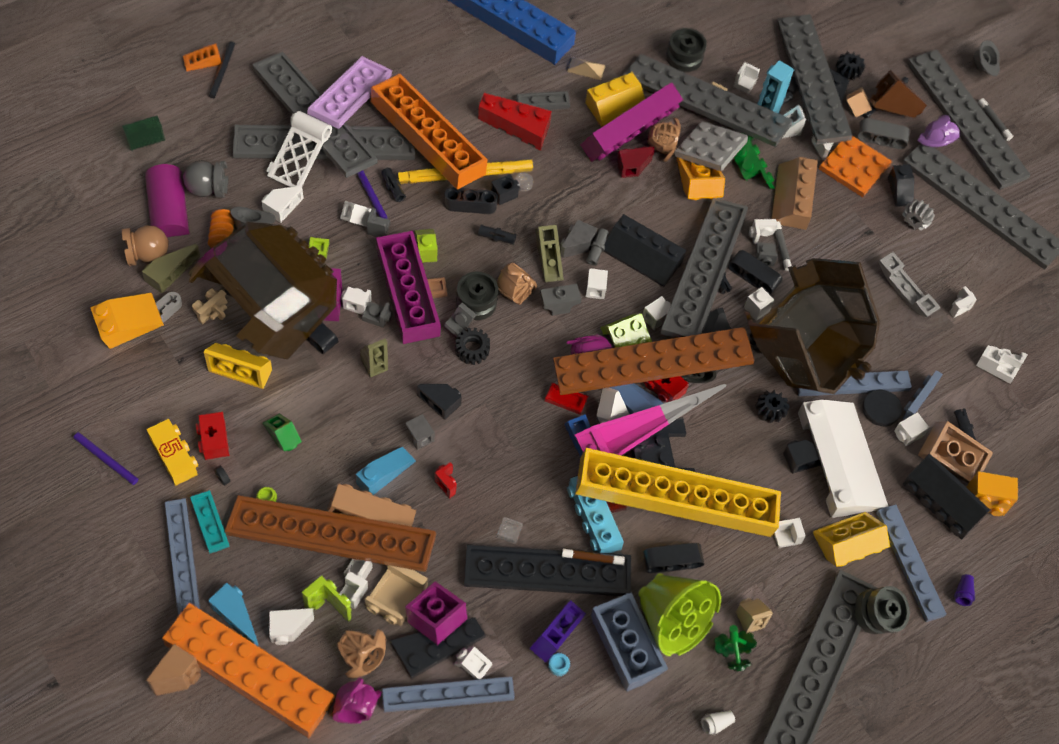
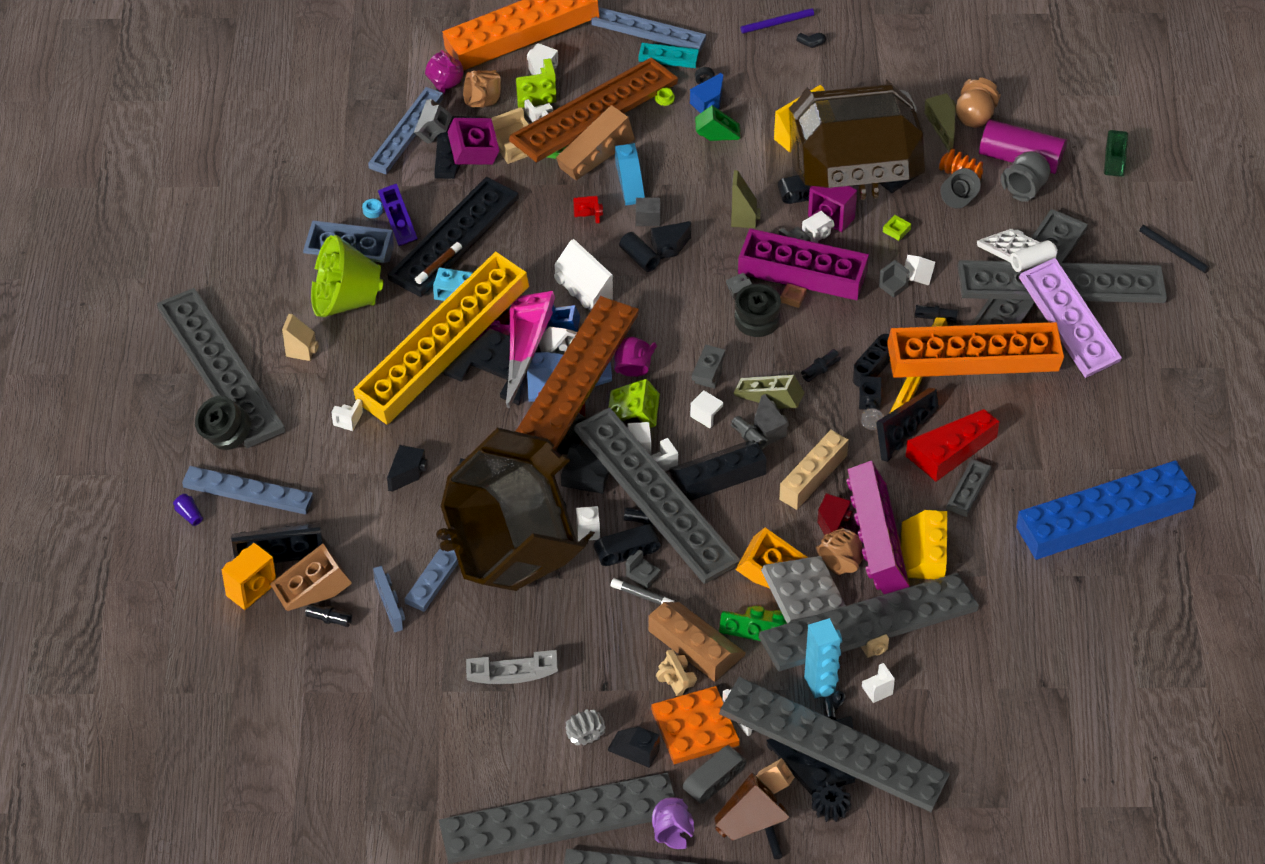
camera: 130 degrees right, 10 degrees down
(120, 415) = (811, 41): none -> black arm
(126, 318) = (906, 67): light orange slope -> none
(173, 451) = (750, 55): yellow brick -> none
(210, 52) = (1195, 242): orange slope -> none
(213, 425) = (746, 85): red brick -> none
(231, 608) = (574, 39): dark azure slope -> none
(245, 458) = (707, 93): none -> blue slope
(282, 201) = (967, 220): white slope -> none
(368, 188) = (938, 296): dark purple bar -> none
(427, 245) = (846, 304): lime slope -> none
(428, 669) = (432, 121): none -> dark grey brick
(469, 414) = (639, 251): none -> black pin
(472, 336) = (708, 296): black tyre -> none
(473, 662) = (417, 153): white bracket -> none
(509, 530) = (509, 228): clear plate -> none
(515, 283) = (747, 343): medium nougat piece -> none
(532, 434) = (583, 275): none -> white slope
(538, 154) = (904, 421): none -> black wing
(586, 68) = (991, 548): tan slope -> none
(602, 190) = (813, 469): none -> tan brick
(662, 287) = (667, 456): none -> white panel
(673, 558) = (394, 321): black beam -> none
(686, 49) = (953, 644): pearl dark grey wheel -> none
(716, 722) = (239, 275): white cone -> none
(735, 644) = (271, 314): dark green plant -> none
(762, 227) = (672, 580): white bracket -> none
(798, 122) = (788, 686): white slope -> none
(833, 191) = (673, 673): none -> tan hips
(843, 457) = (380, 496): white slope -> none
(852, 539) = (304, 453): yellow slope -> none
(882, 407) = (404, 563): black tile -> none
(911, 429) = (362, 567): white brick -> none
(964, 302) = (456, 709): white bracket -> none
(1001, 362) = (368, 697): white slope -> none

